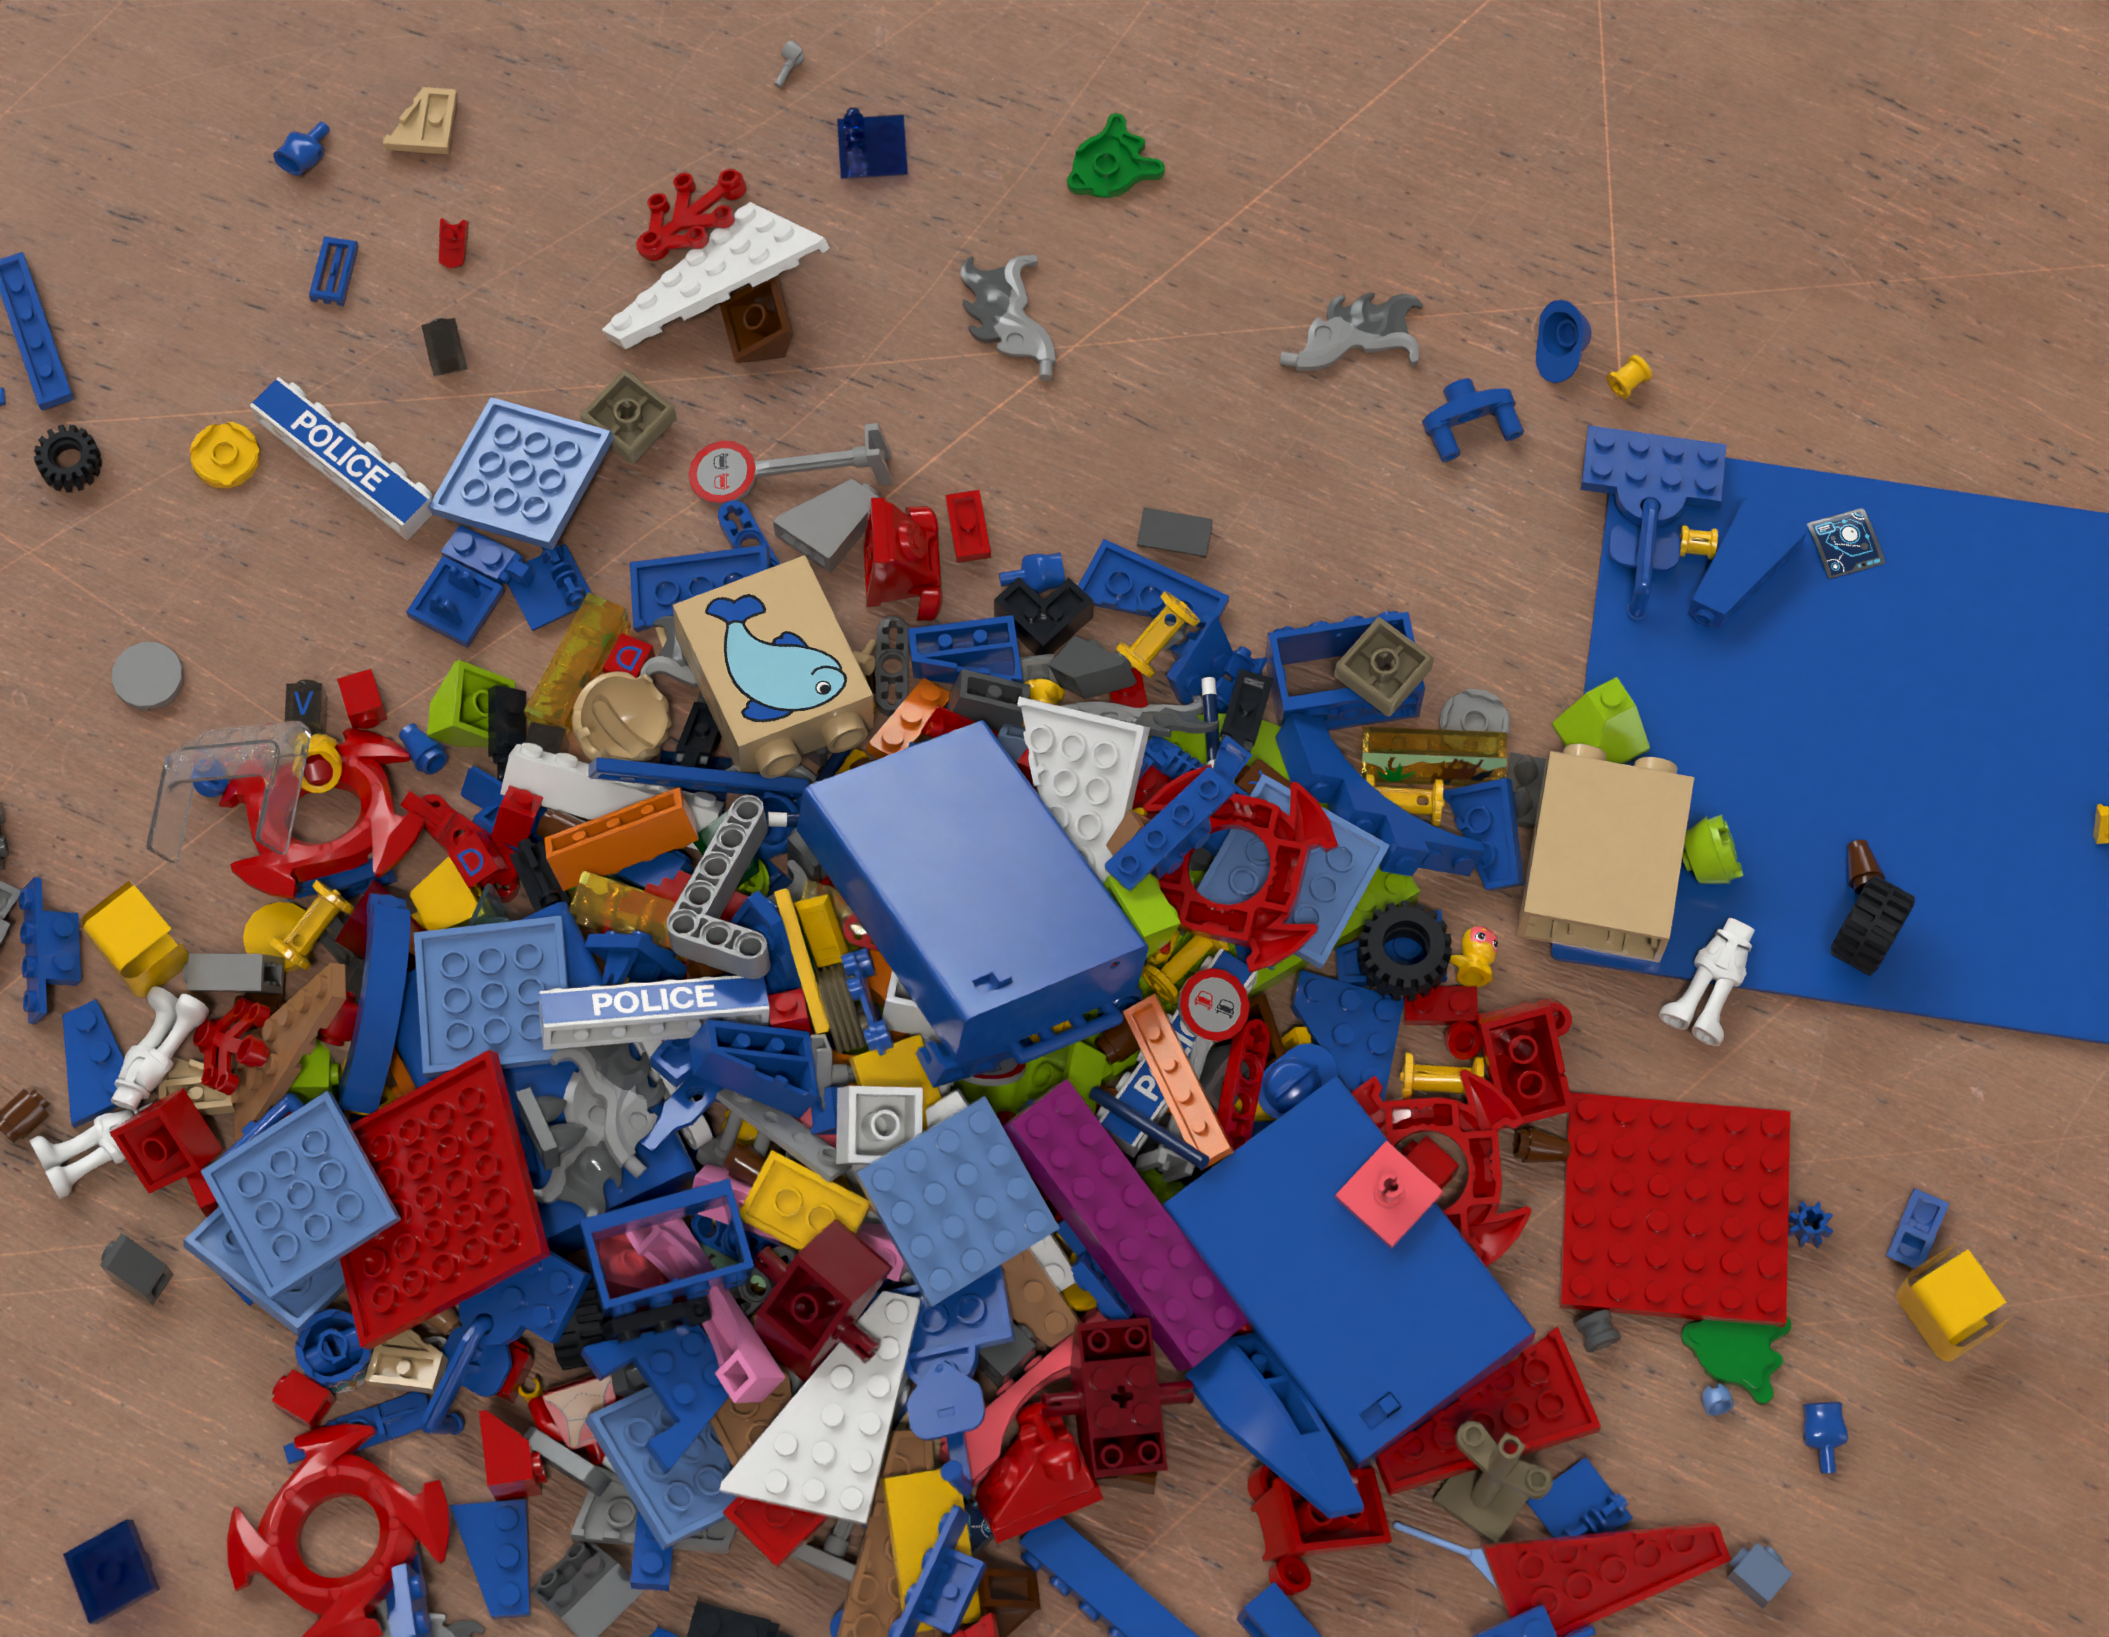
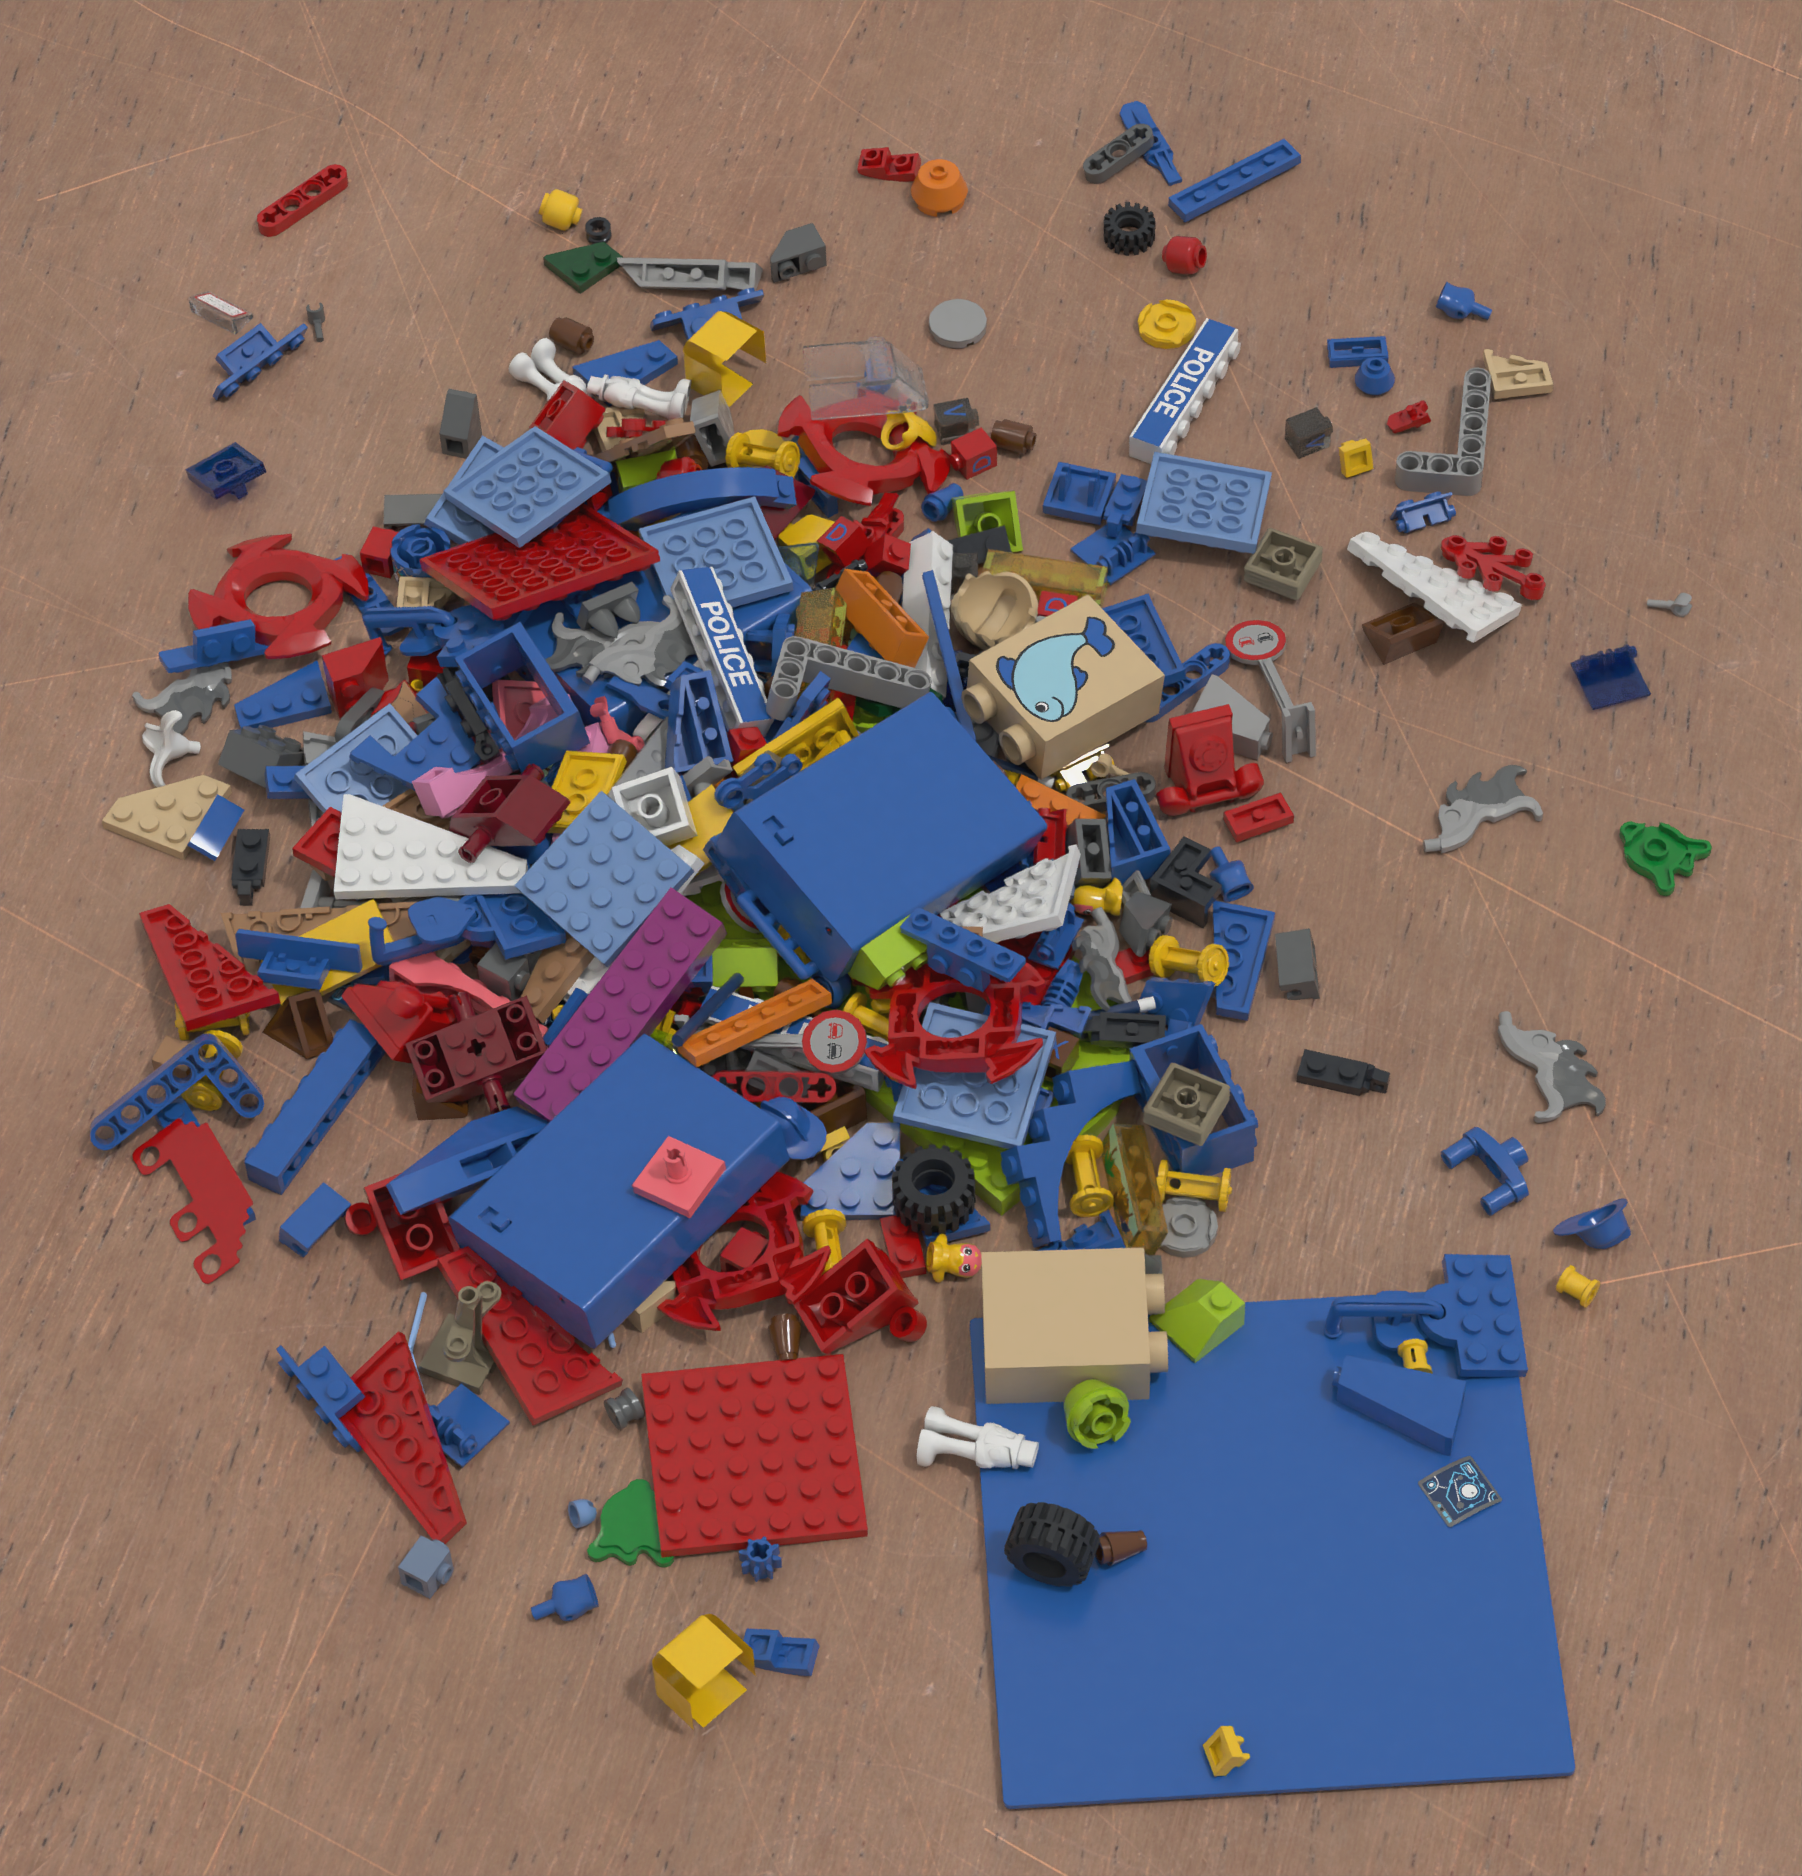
camera: 80 degrees right, 15 degrees down
(133, 409) = (1184, 255): none -> red head
(253, 1351) = (408, 509): none -> dark grey hinge
(349, 651) = (1013, 436): none -> reddish brown brick
(380, 262) = (1374, 376): none -> blue cone
(493, 309) = (1355, 457): none -> yellow tile
(507, 197) = (1451, 472): none -> light grey beam
(591, 250) = (1412, 514): none -> blue hinge
(710, 1163) = (609, 725): none -> coral arm
(1317, 530) = (1341, 1074): none -> black hinge
(1446, 676) = (1195, 1185): none -> yellow hose

